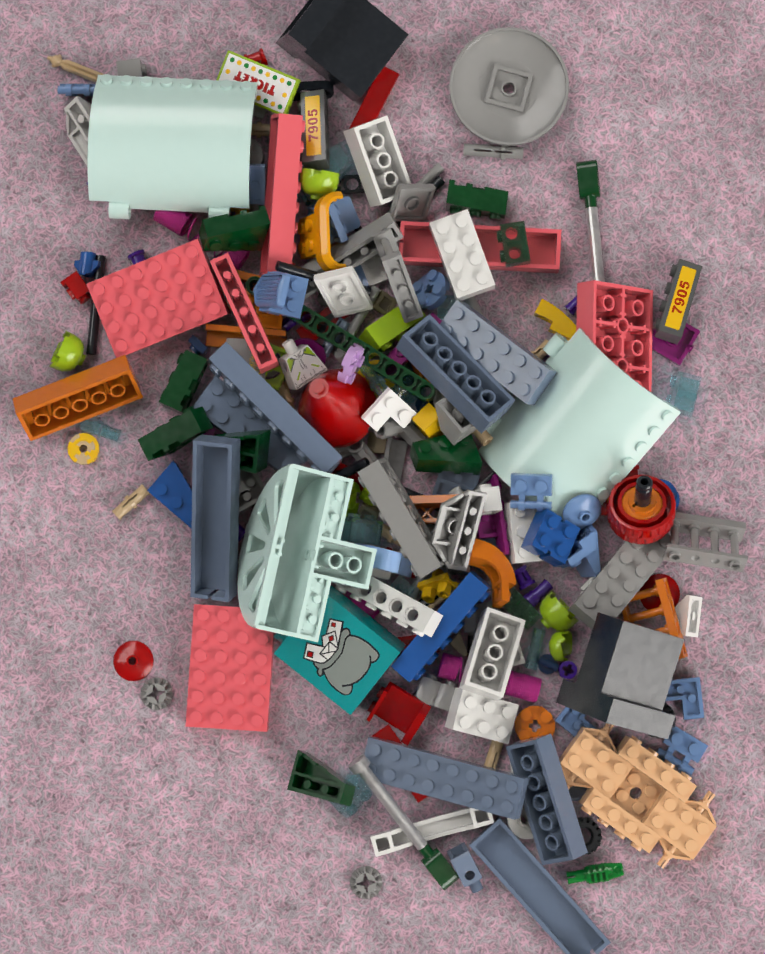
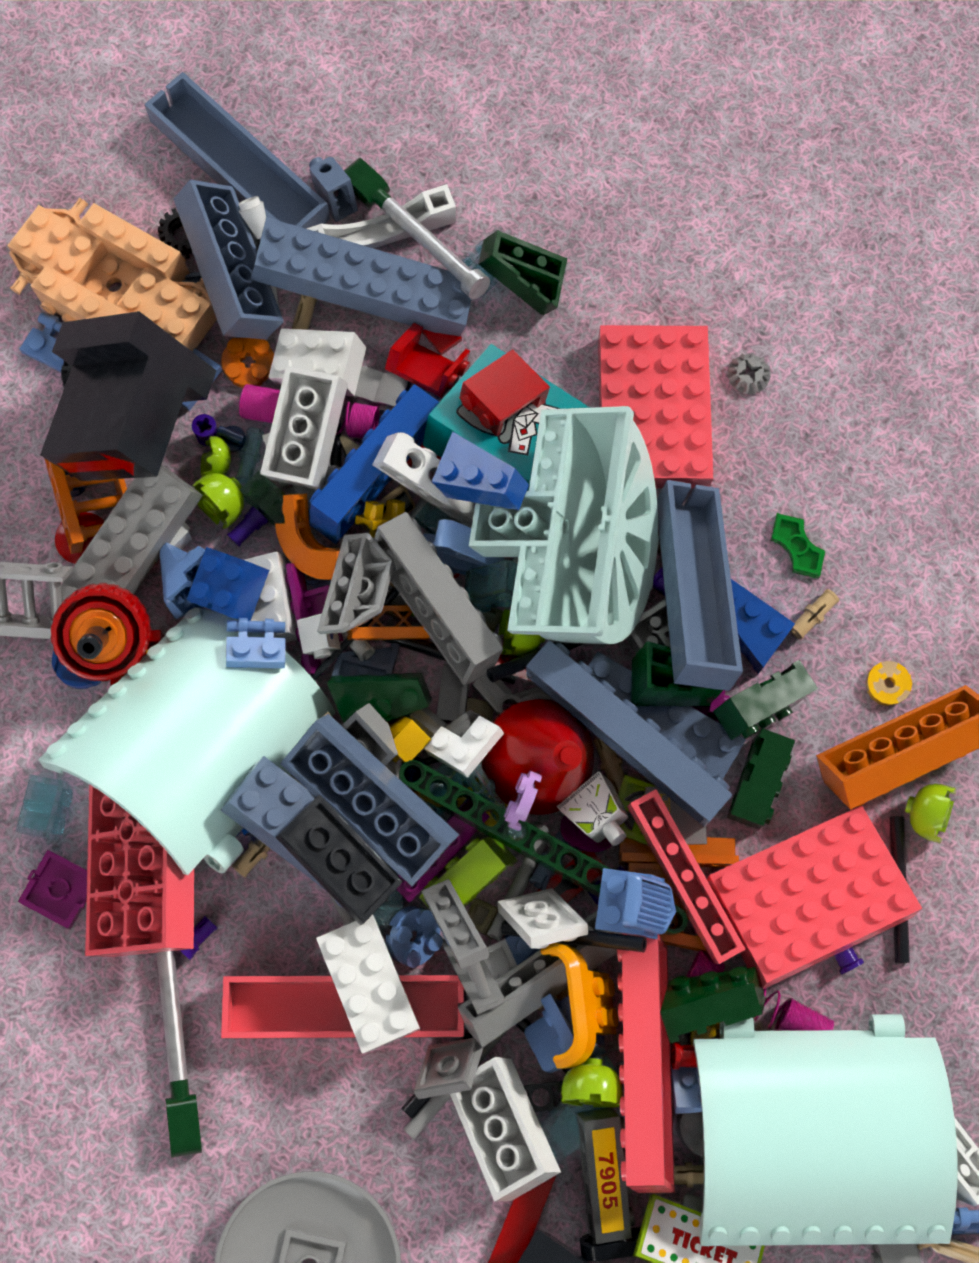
camera: 165 degrees right, 10 degrees down
(77, 287) = (934, 912): red brick -> none
(87, 264) = (921, 947): blue piece -> none
(100, 430) = (868, 709): clear light blue axle -> none
(140, 564) = (804, 555): none -> green tile
(143, 657) = (784, 424): red dish -> none
(197, 346) = (746, 835): dark blue plate -> none
(257, 199) = (682, 1056): none -> red bush
(344, 666) = (503, 391): none -> red panel
(358, 876) = (449, 173): light grey gear -> none
(368, 598) = (478, 476): none -> wedge
(469, 151) = (343, 1162): light grey pin -> none
(477, 332) = (339, 859): none -> black tile
(478, 201) = (351, 1078): dark green wedge -> none
(519, 244) = (282, 1009): clear green brick -> none
(523, 577) = (264, 538): dark purple bush -> none
(526, 838) = (254, 214): none -> white cone
(559, 321) = (223, 900): yellow slope -> none
(582, 510) = (185, 626): medium blue dish -> none
(596, 873) = (157, 192): green hinge -> none
(678, 301) = (48, 941): brick -> none
(688, 615) = (42, 509): white slope -> none
(690, 694) = (39, 404): medium blue plate -> none

